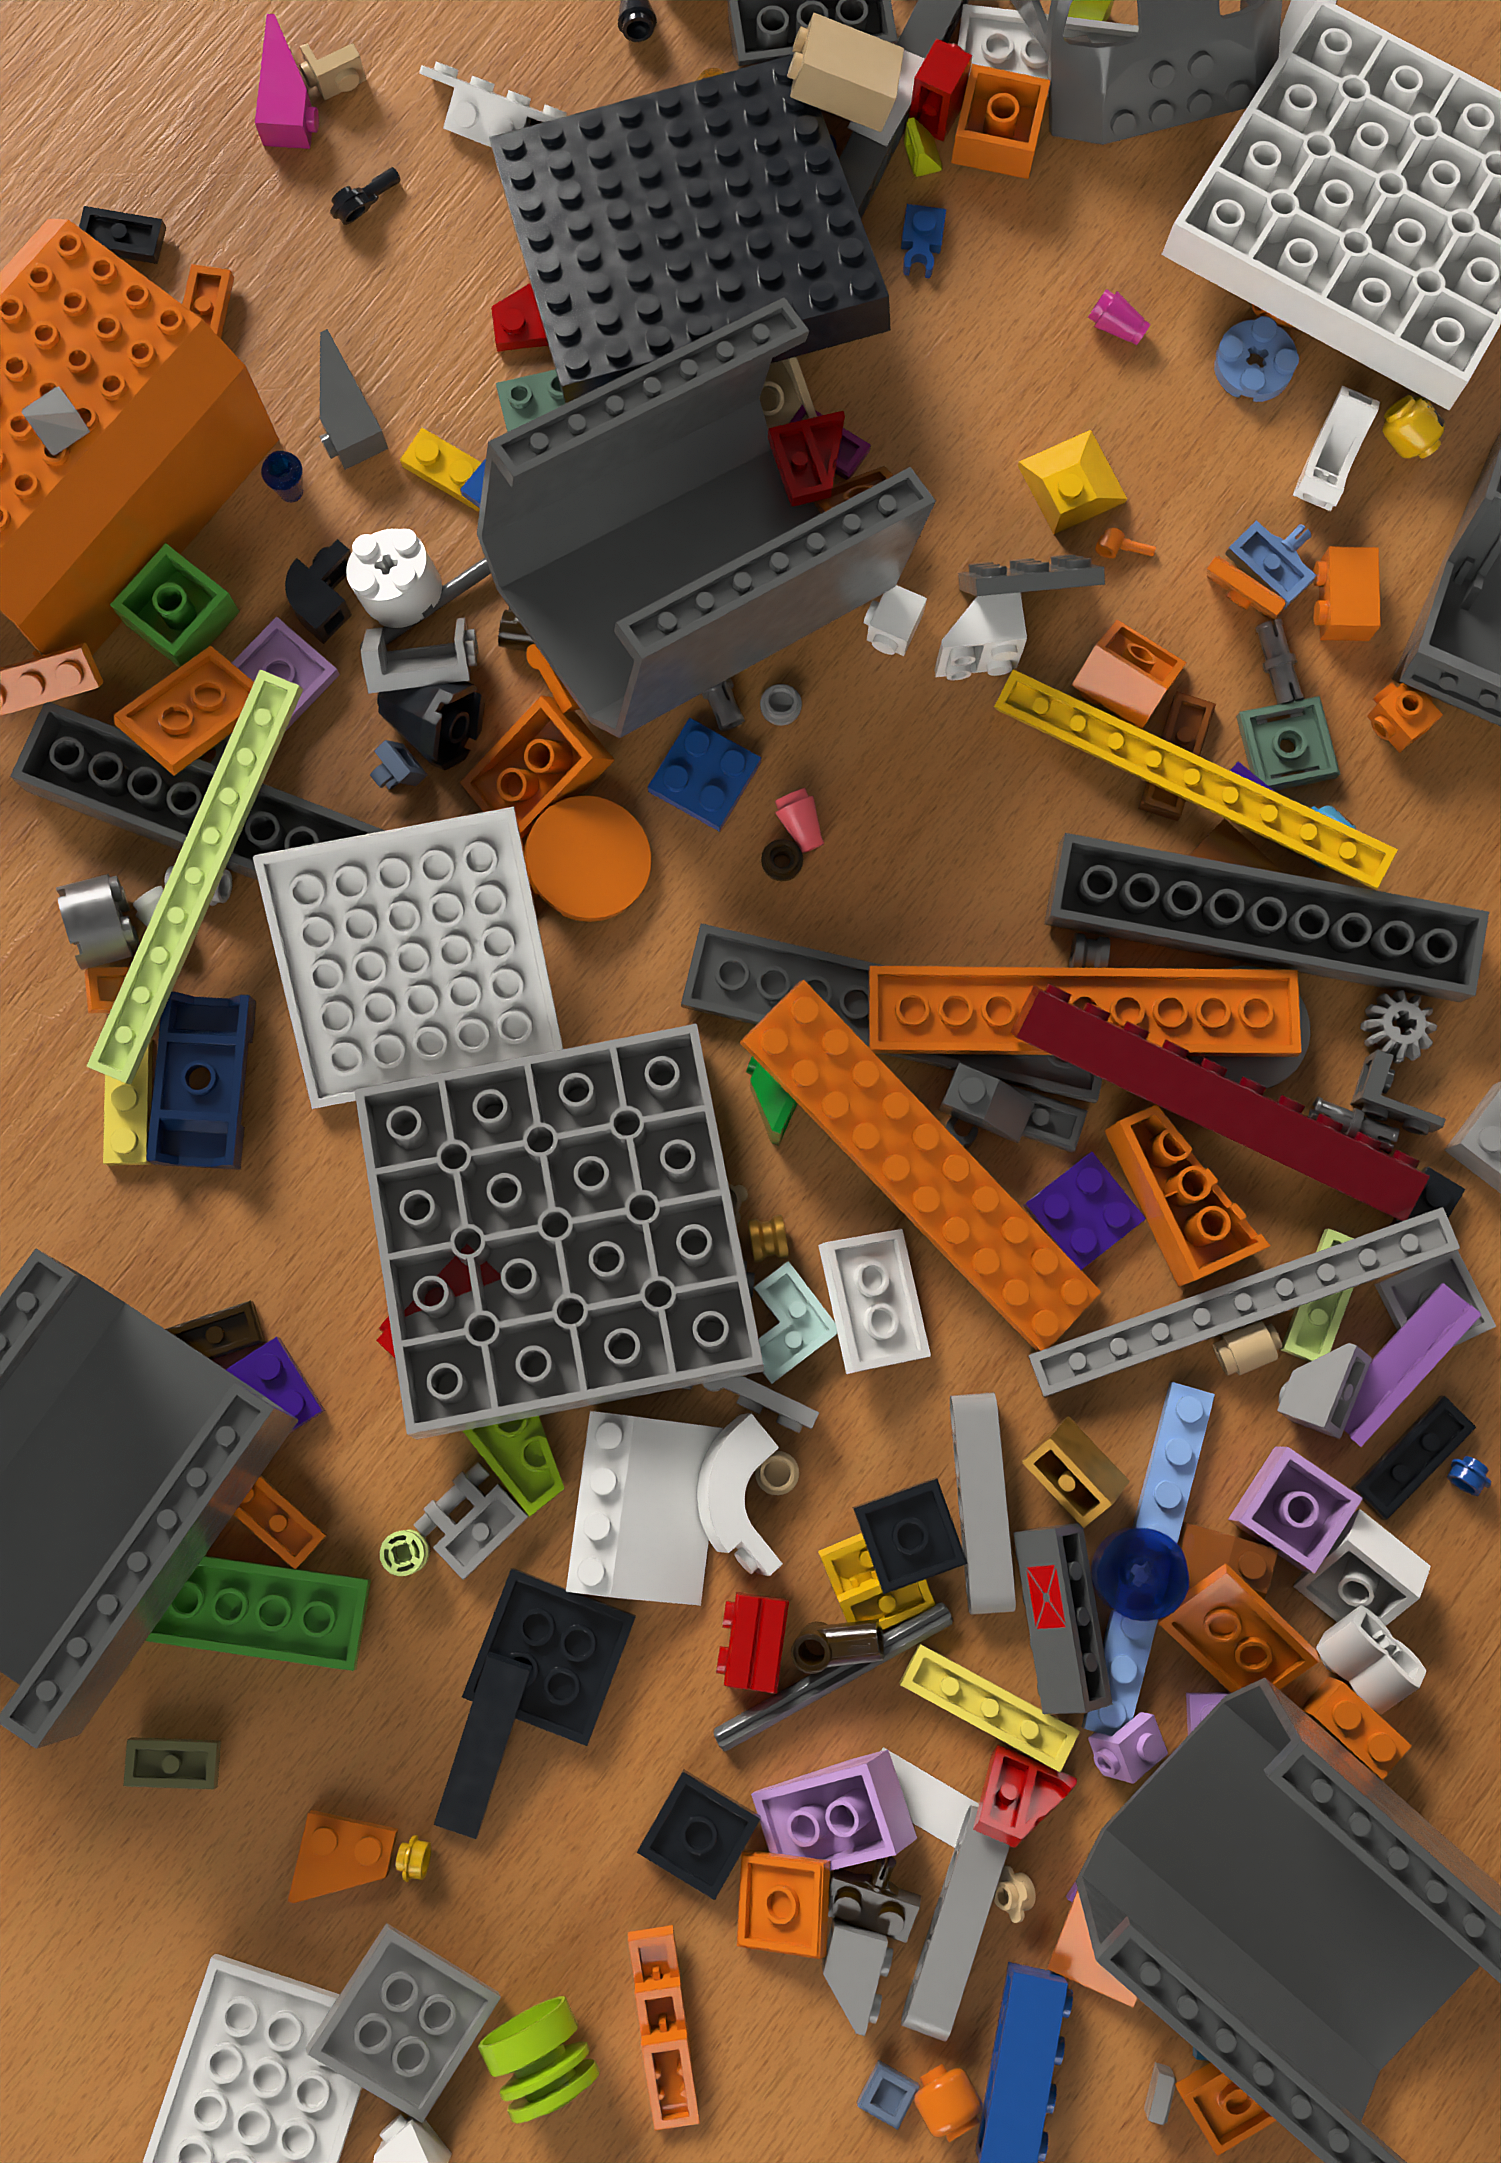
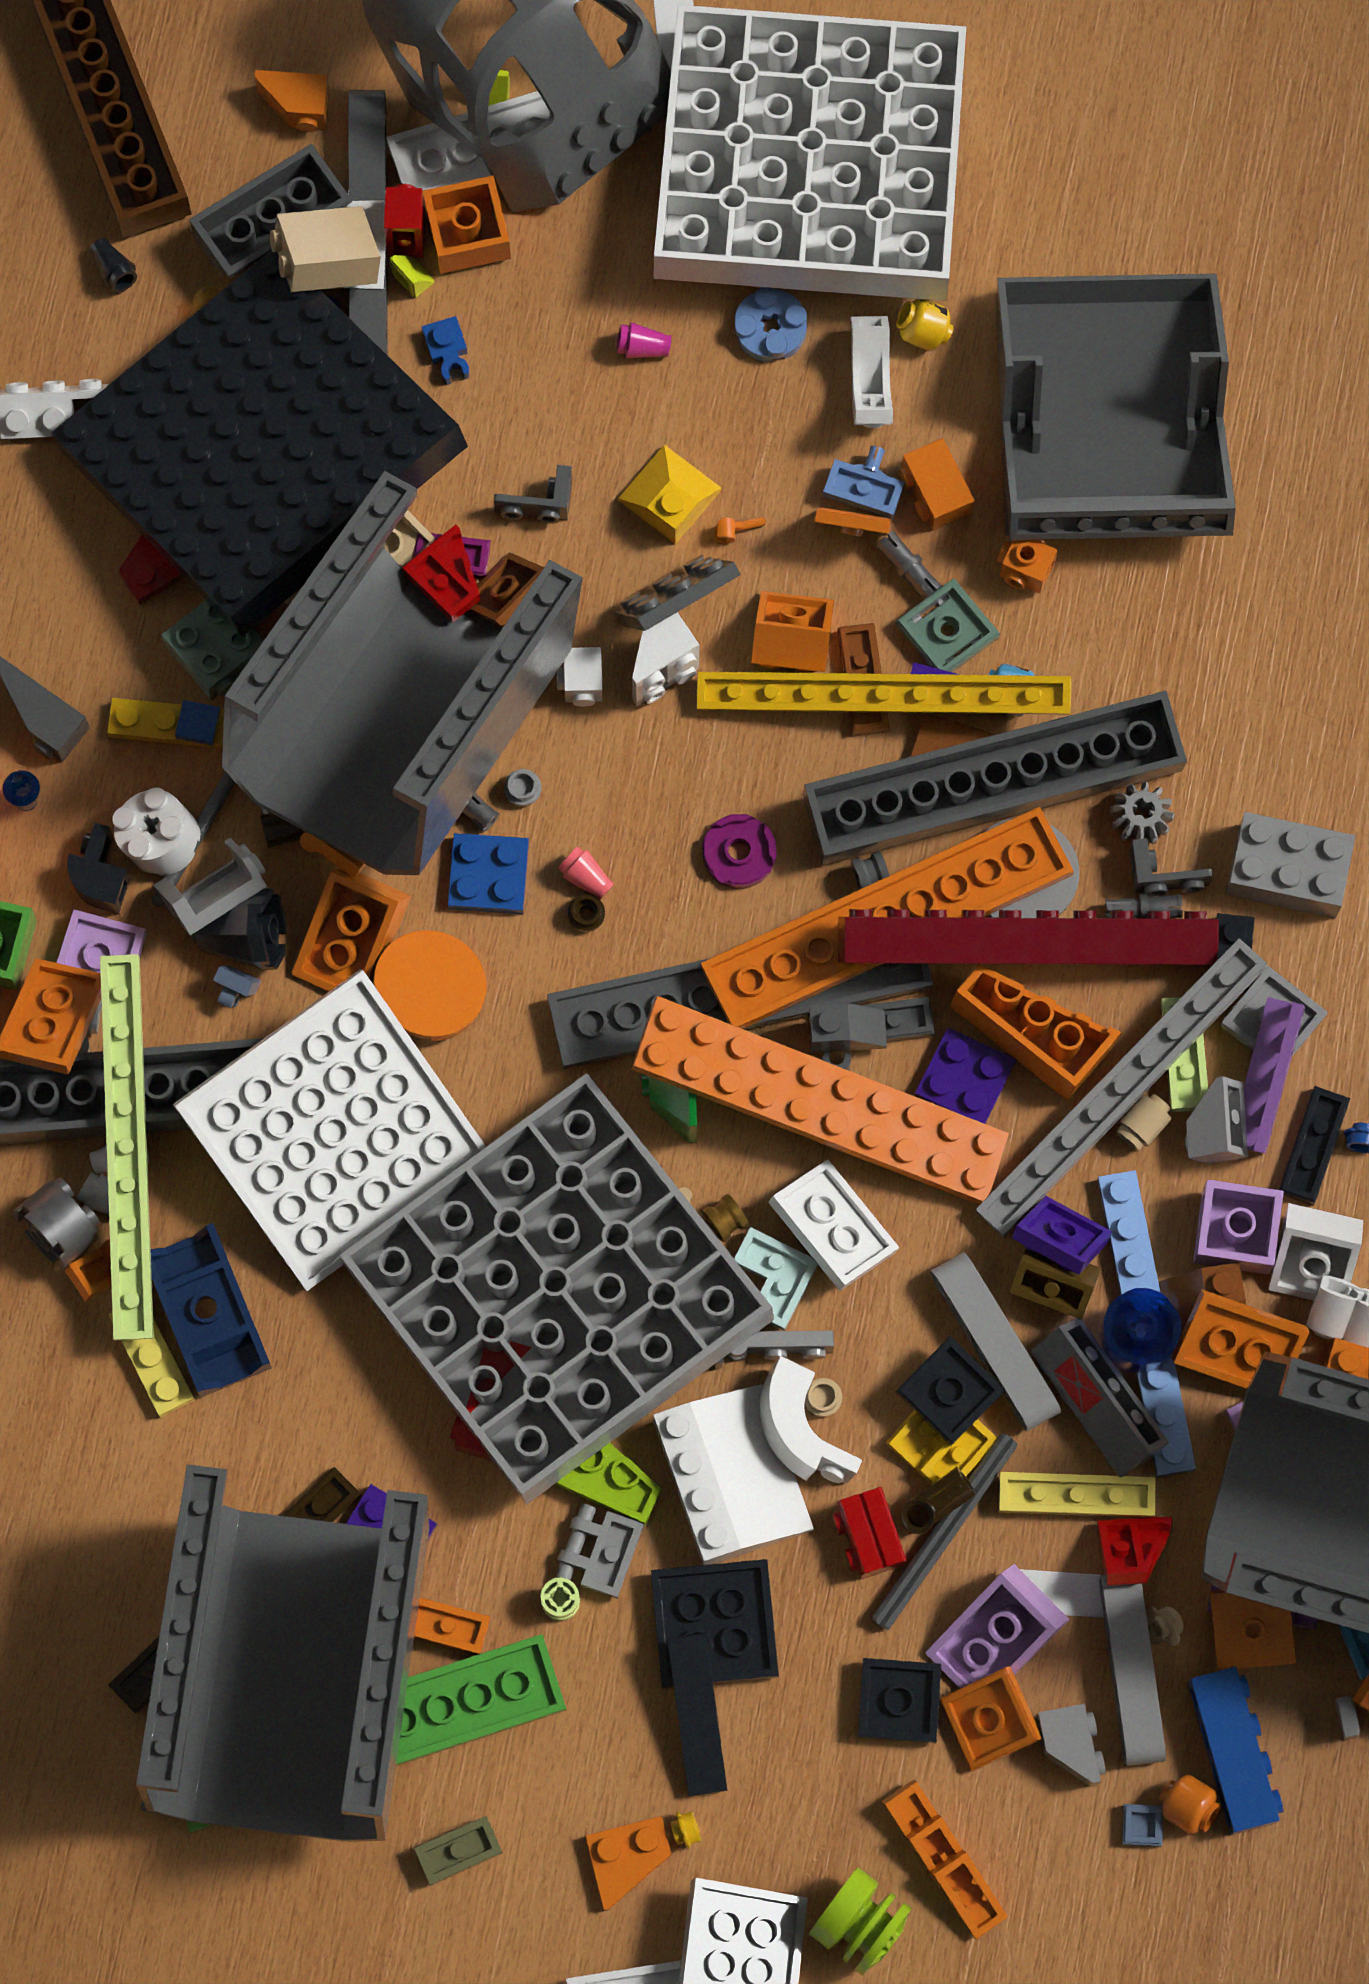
camera: 25 degrees left, 5 degrees down
(873, 1901) = (1059, 1683): dark brown plate -> none
(941, 439) = (546, 510): none -> dark grey bracket
(966, 894) = (734, 872): none -> magenta tile
(1105, 1428) = (1061, 1235): none -> dark purple plate
(1130, 1750) = (1199, 1474): lavender bracket -> none

